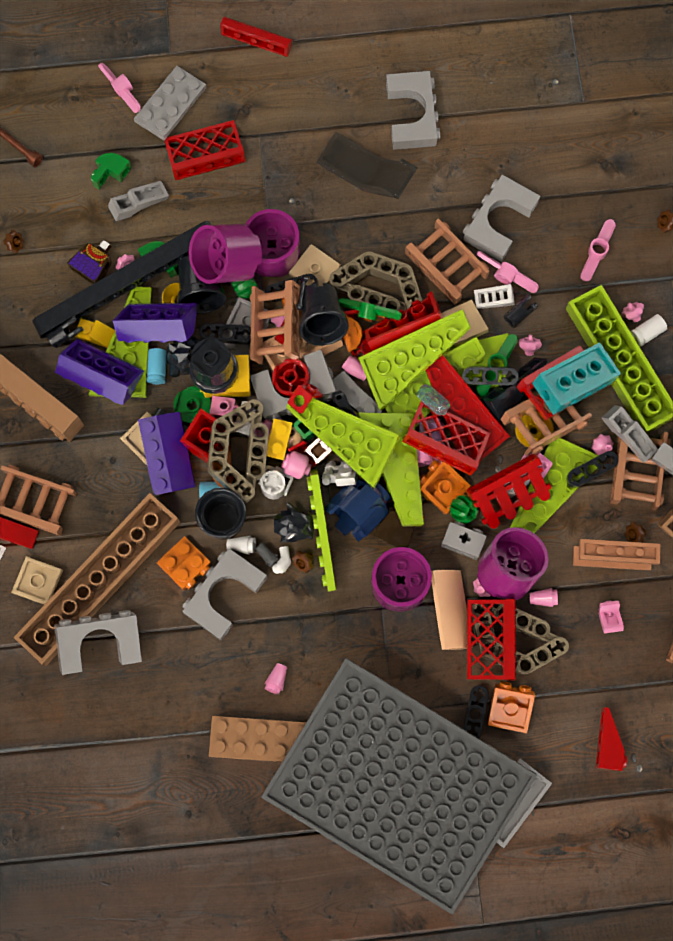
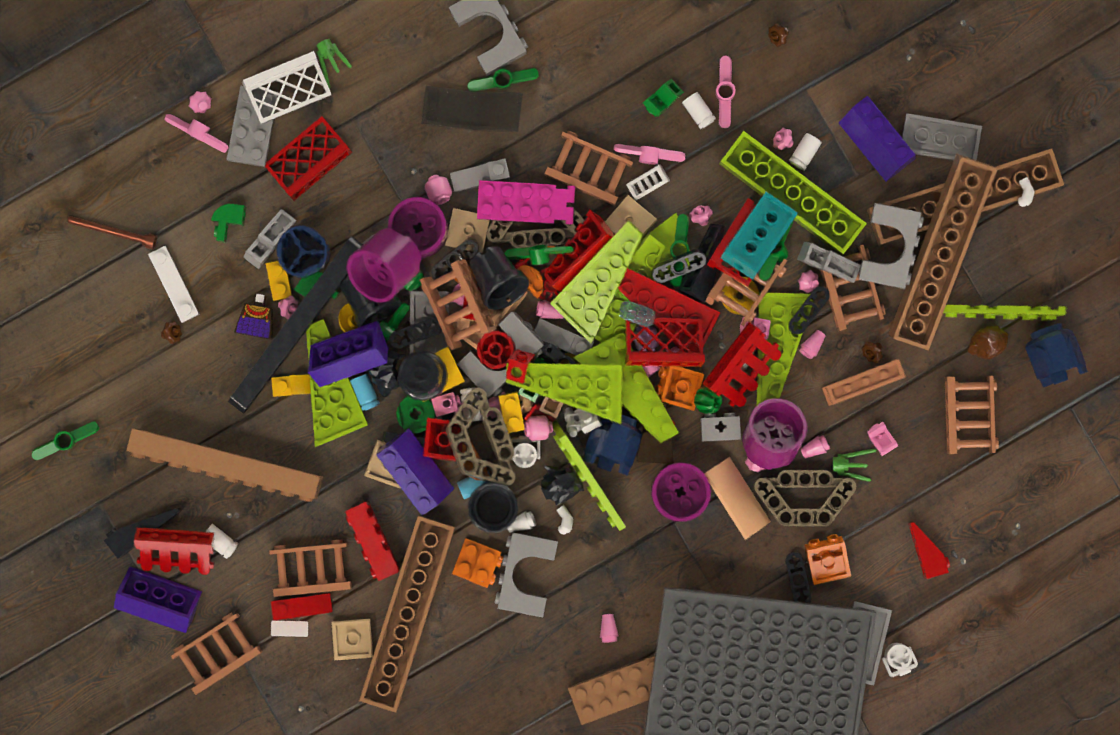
camera: 20 degrees left, 10 degrees up
(36, 203) = (173, 284): none -> white plate
(63, 333) = (263, 400): black hinge -> none
(70, 635) = (411, 674): light grey arch -> none
(98, 371) = (315, 423): dark purple slope -> none
(98, 498) = (372, 540): none -> red wedge
(129, 238) = (278, 281): none -> yellow plate
(135, 64) = (200, 102): none -> bright pink piece
(158, 209) = (292, 250): none -> dark blue piece
(211, 66) = (282, 71): none -> white fence
(211, 317) = (389, 328): none -> green piece
(256, 36) = (303, 20): red brick -> none
(263, 68) = (326, 50): none -> bright green plant
(267, 555) = (548, 521): dark grey pin -> none
(299, 306) = (474, 281): black hinge -> none
(303, 561) = (584, 512): reddish brown piece -> none
(306, 222) = (438, 189): none -> bright pink head
(348, 227) = (470, 177): none -> light grey slope
(376, 262) = (524, 202): none -> dark pink hinge
(393, 154) = (490, 81): none -> green piece
(504, 193) = (615, 75): light grey arch -> none
(508, 644) = (800, 502): red fence -> none
(519, 312) = (677, 188): black hinge -> none
(539, 831) = (899, 657): none -> white piece
(540, 230) = (663, 98): none -> green brick
(562, 624) = (841, 464): none -> bright green plant
(567, 254) = (699, 110): none -> white piece
(582, 407) = (774, 258): none -> green piece
(582, 503) = (812, 345): none -> bright pink cone

